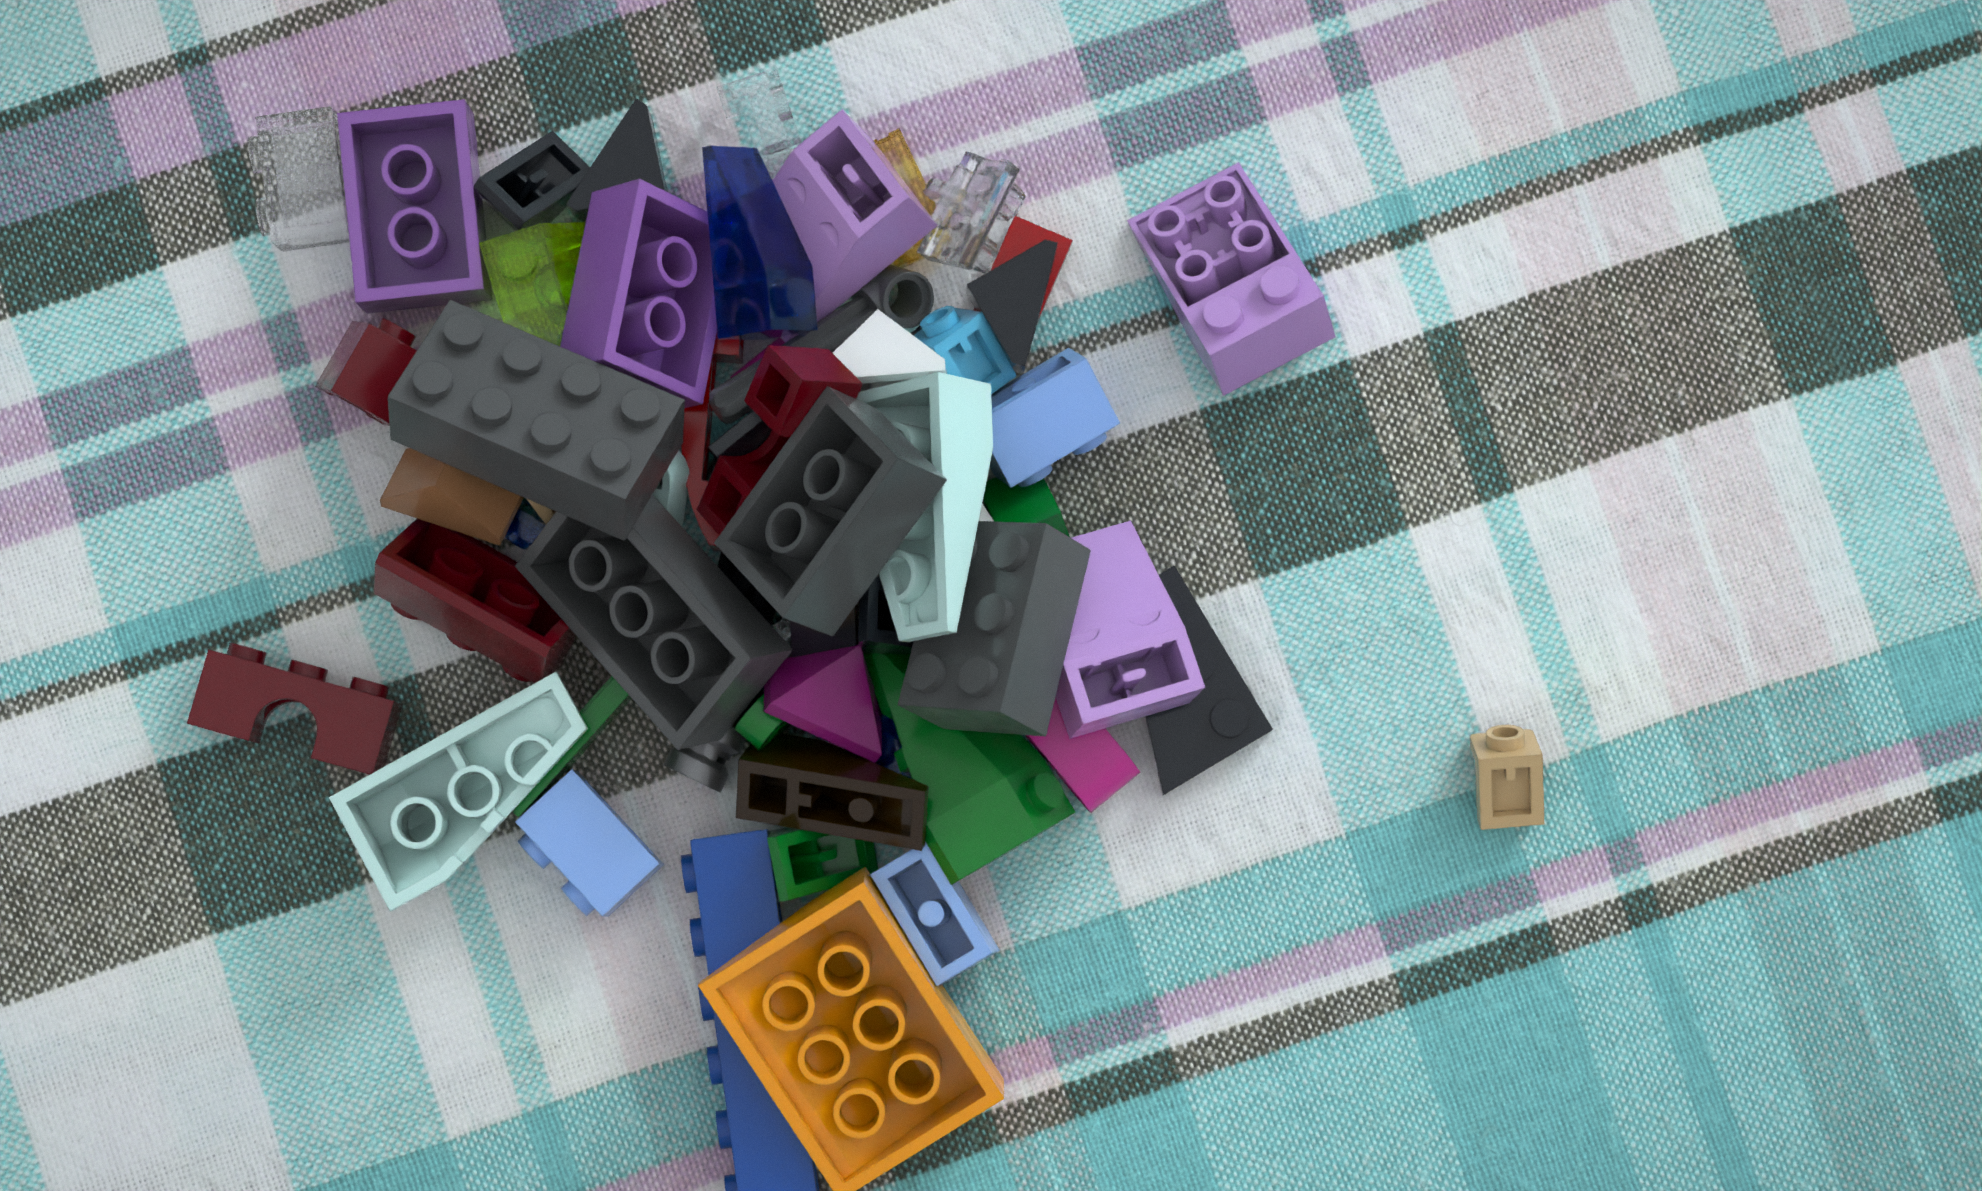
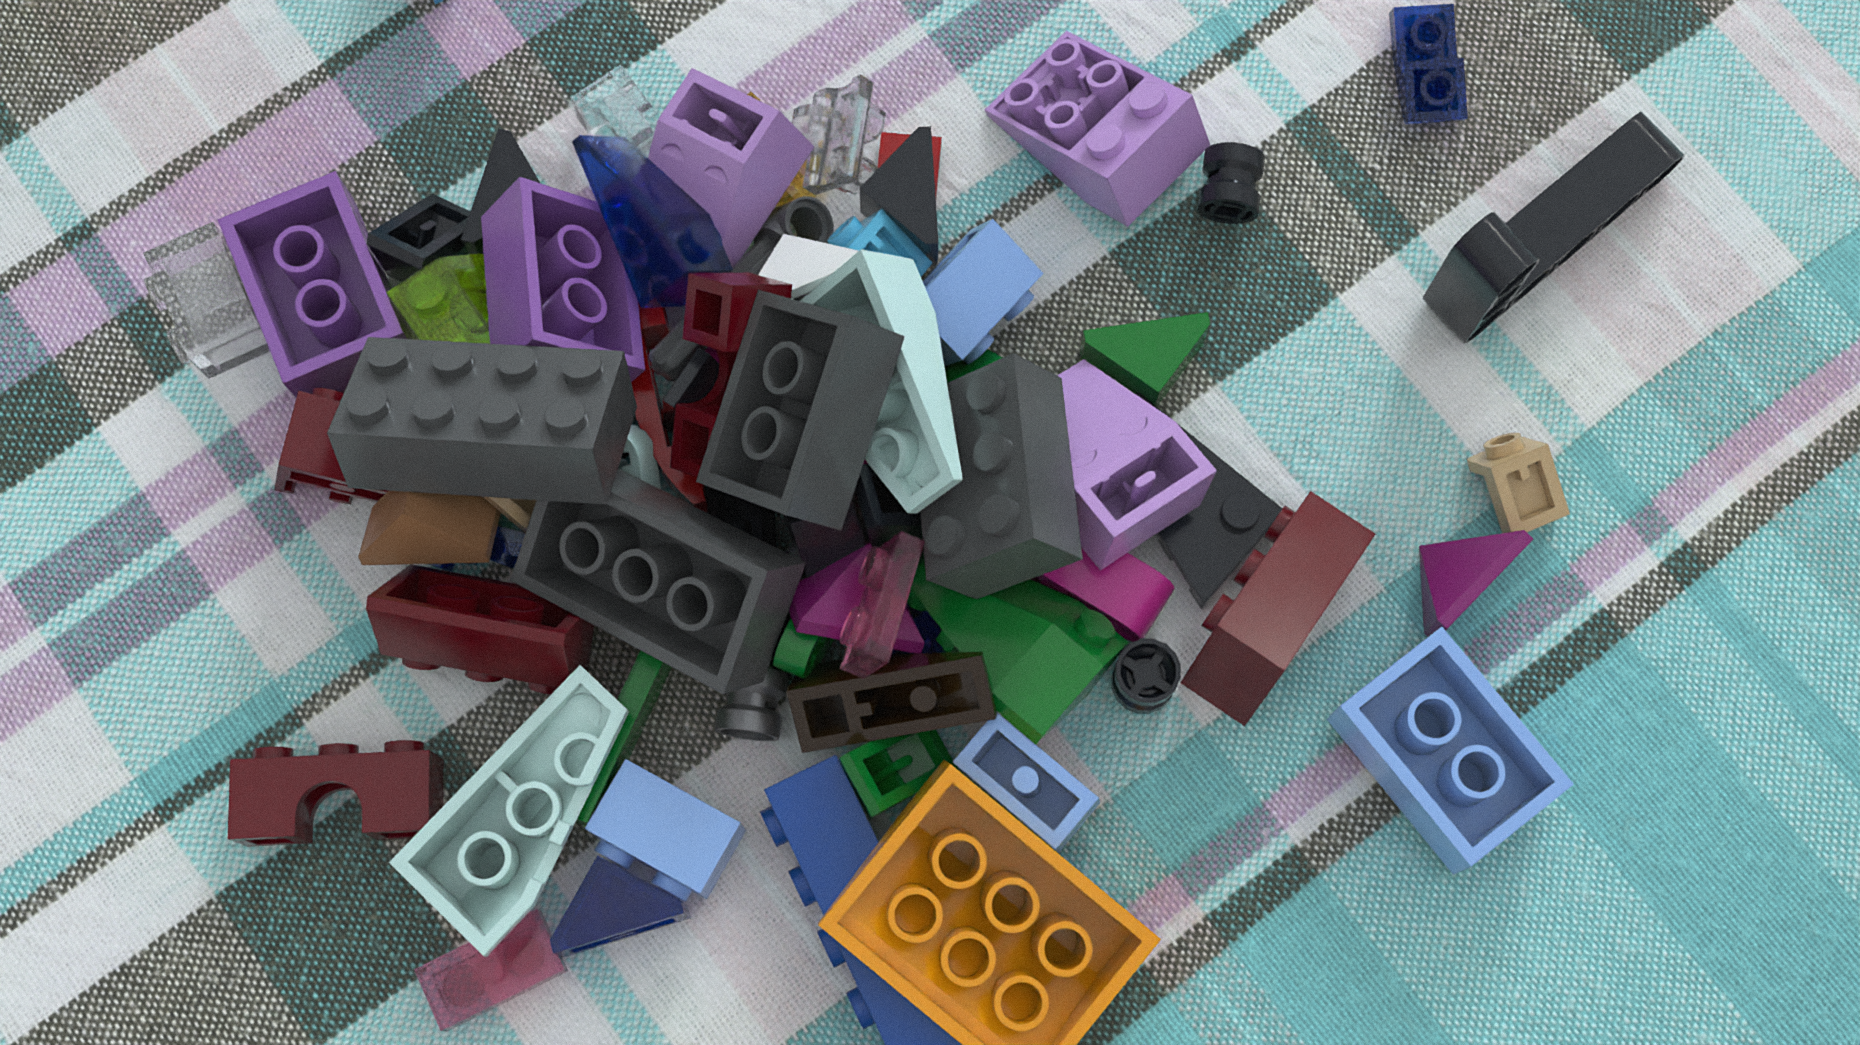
camera: 20 degrees left, 10 degrees down
(364, 925) = (468, 984): none -> clear pink plate
(520, 897) = (613, 908): none -> clear blue slope
(836, 731) = (874, 625): none -> clear pink plate
(1086, 840) = (1150, 665): none -> black wheel
(1195, 535) = (1146, 354): none -> green slope
(1230, 820) = (1277, 606): none -> dark red wedge
(1336, 1013) = (1449, 751): none -> light blue brick
(1340, 386) = (1231, 182): none -> black wheel
(1418, 845) = (1460, 571): none -> magenta slope
(1587, 320) = (1427, 64): none -> clear blue slope
(1641, 533) = (1505, 261): none -> black beam

